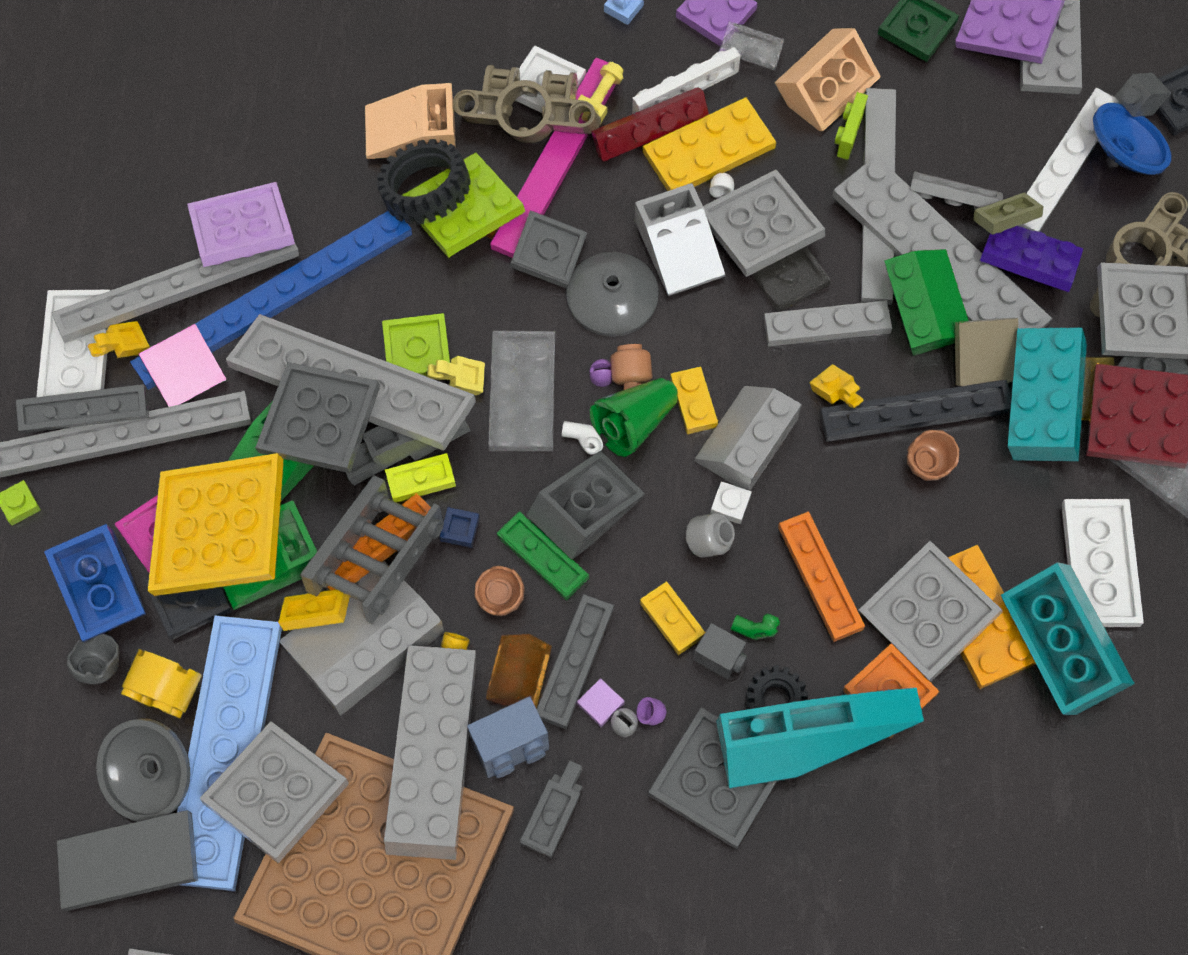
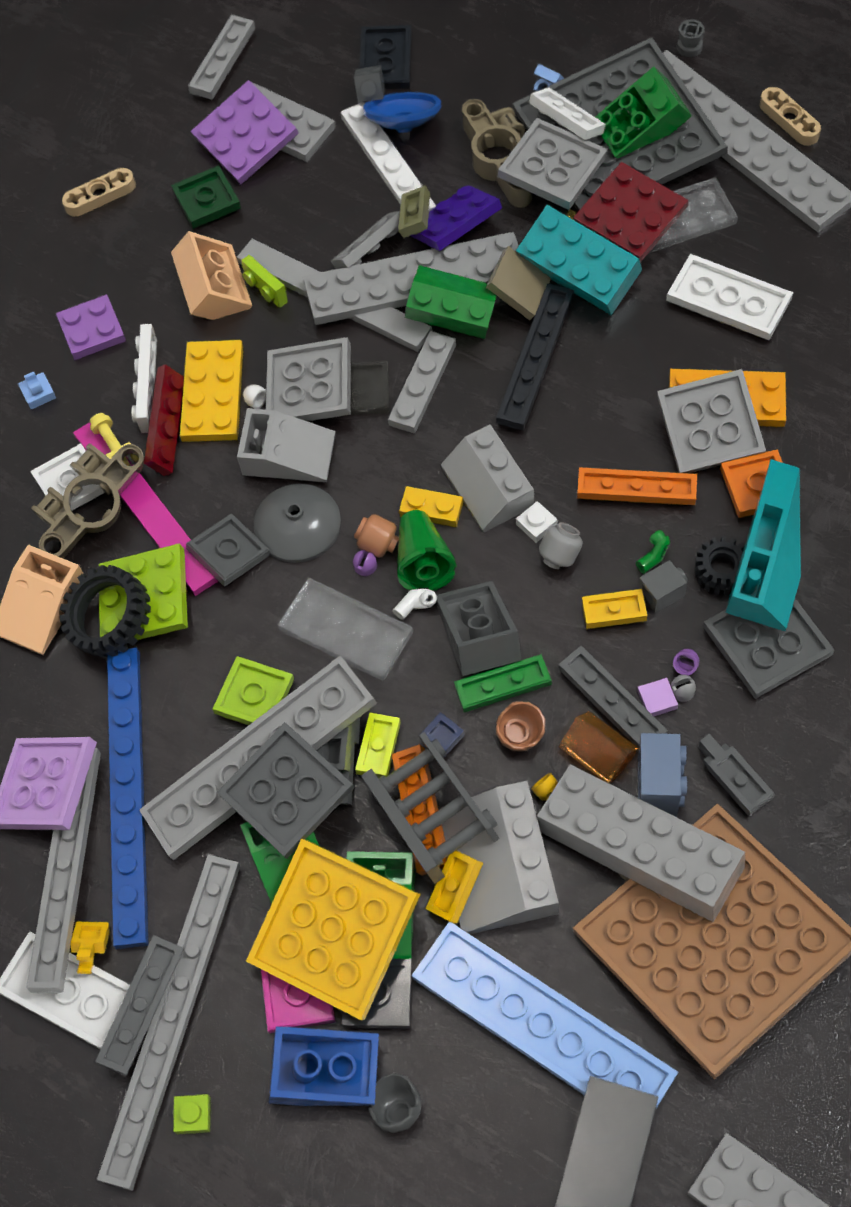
camera: 55 degrees left, 5 degrees down
(128, 770) = (541, 1119): dark grey dish -> none
(160, 683) = (453, 1048): yellow brick -> none
(182, 366) = (150, 898): tile -> none
(274, 791) = (612, 990): light grey plate -> none
(462, 373) = (300, 667): light yellow plate -> none
(752, 45) = (149, 310): clear plate -> none
(836, 385) = (481, 398): yellow plate -> none
(933, 455) = (582, 360): nougat hair -> none
(1067, 639) = (784, 342): teal brick -> none

